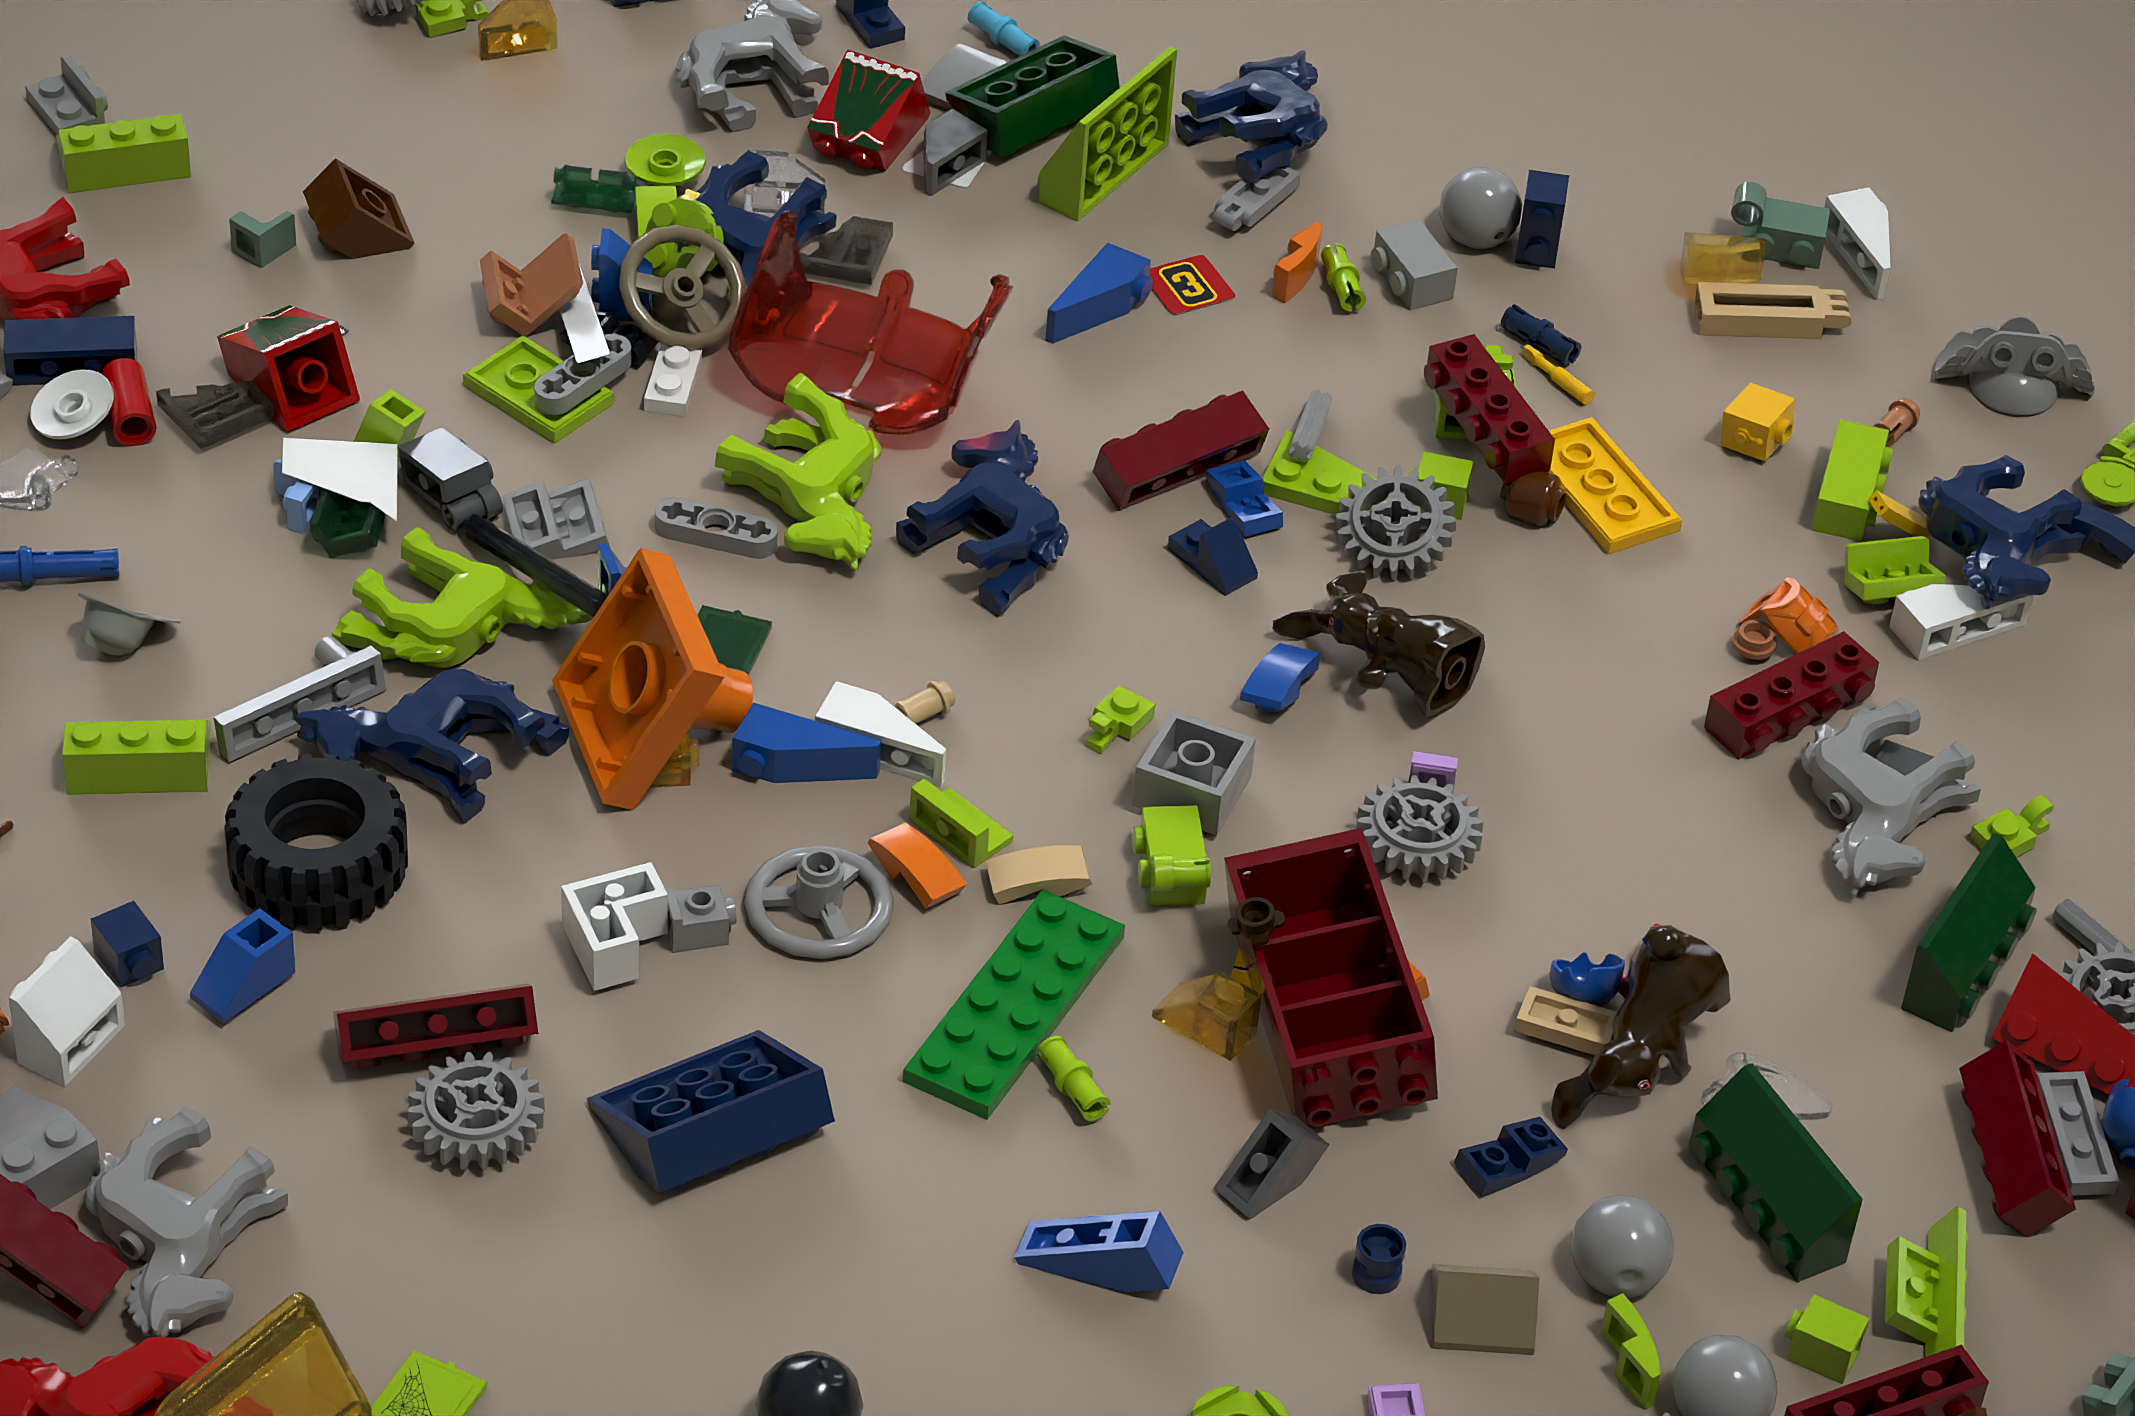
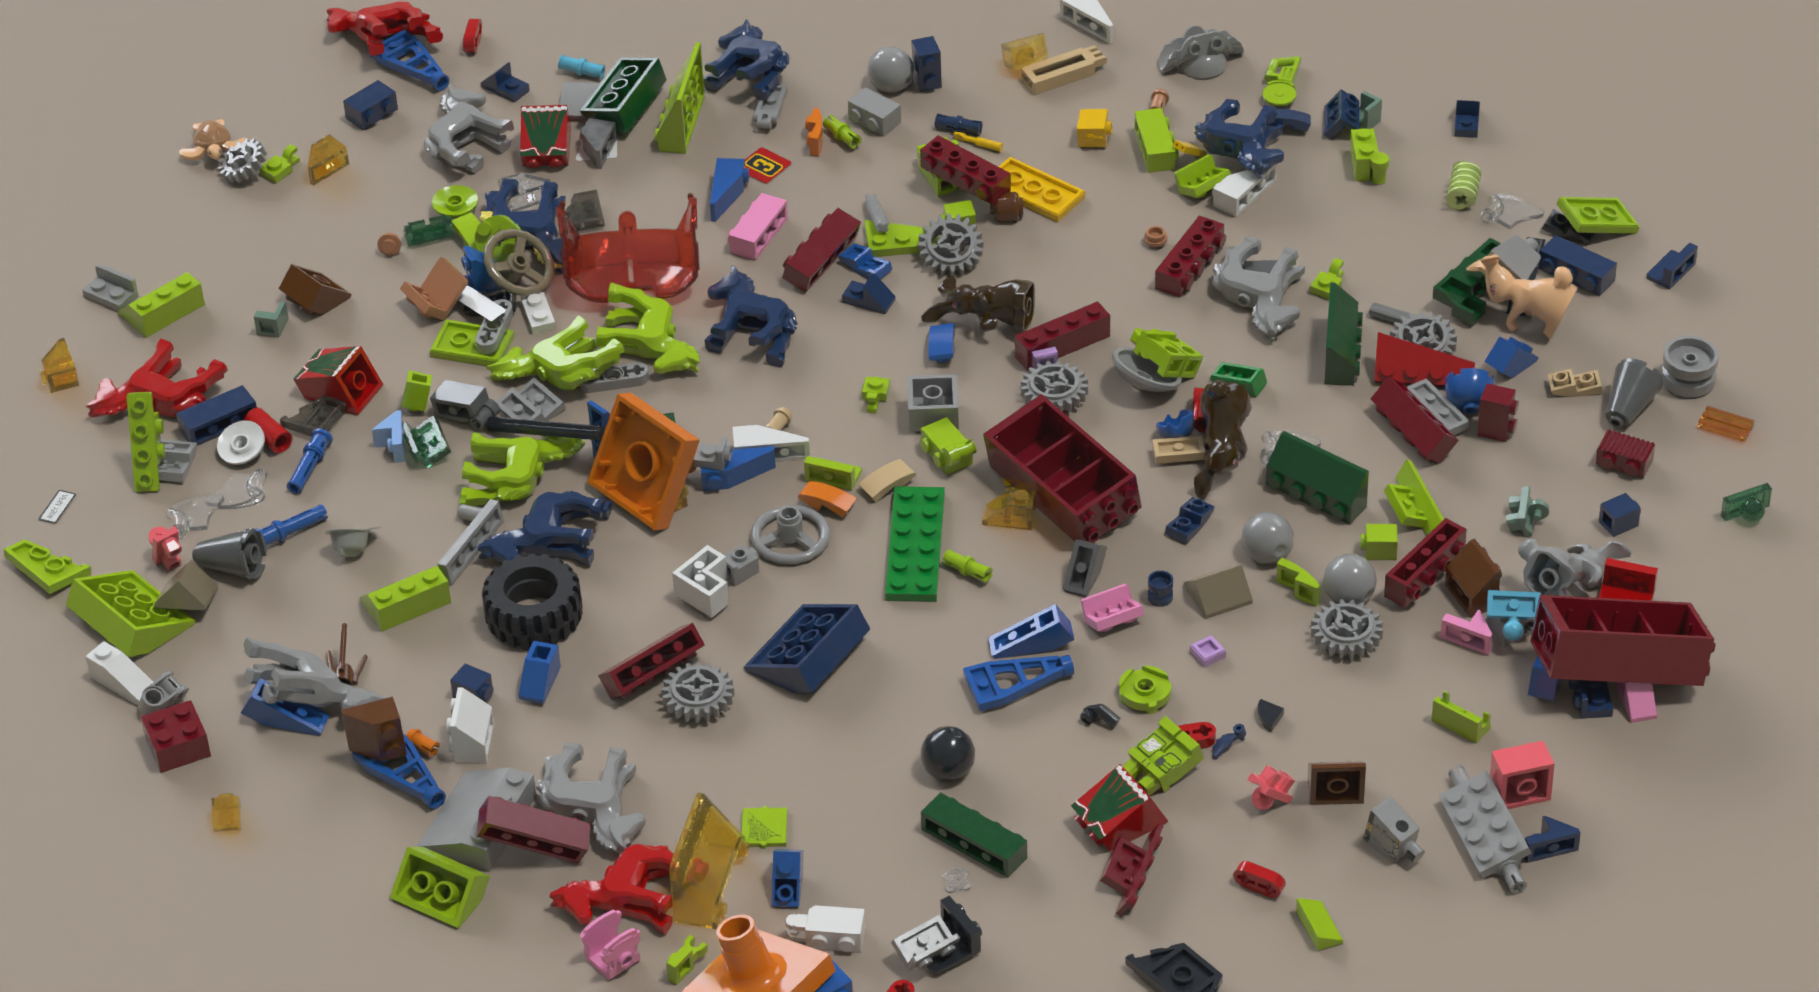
camera: 20 degrees left, 0 degrees up
(169, 465) = (312, 453): none -> blue pin
(346, 467) = (413, 417): white sticker -> none
(521, 187) = (389, 244): none -> nougat plate
(642, 467) = (560, 359): none -> lime animal
(766, 715) = (713, 456): none -> light grey bracket
(962, 1304) = (989, 695): none -> blue plate
(1107, 375) = (758, 226): none -> bright pink brick
(1256, 920) = (1019, 455): dark brown plate -> none
(1268, 1259) = (1110, 608): none -> bright pink bracket
(1494, 743) = (1065, 333): none -> dark red brick
(1590, 859) = (1142, 372): none -> light grey dish
(1645, 845) = (1168, 352): none -> lime hips
(1756, 941) = (1250, 377): none -> green slope
(1791, 229) = (1052, 21): sand green hinge -> none
(1794, 615) = (1168, 216): orange piece -> none

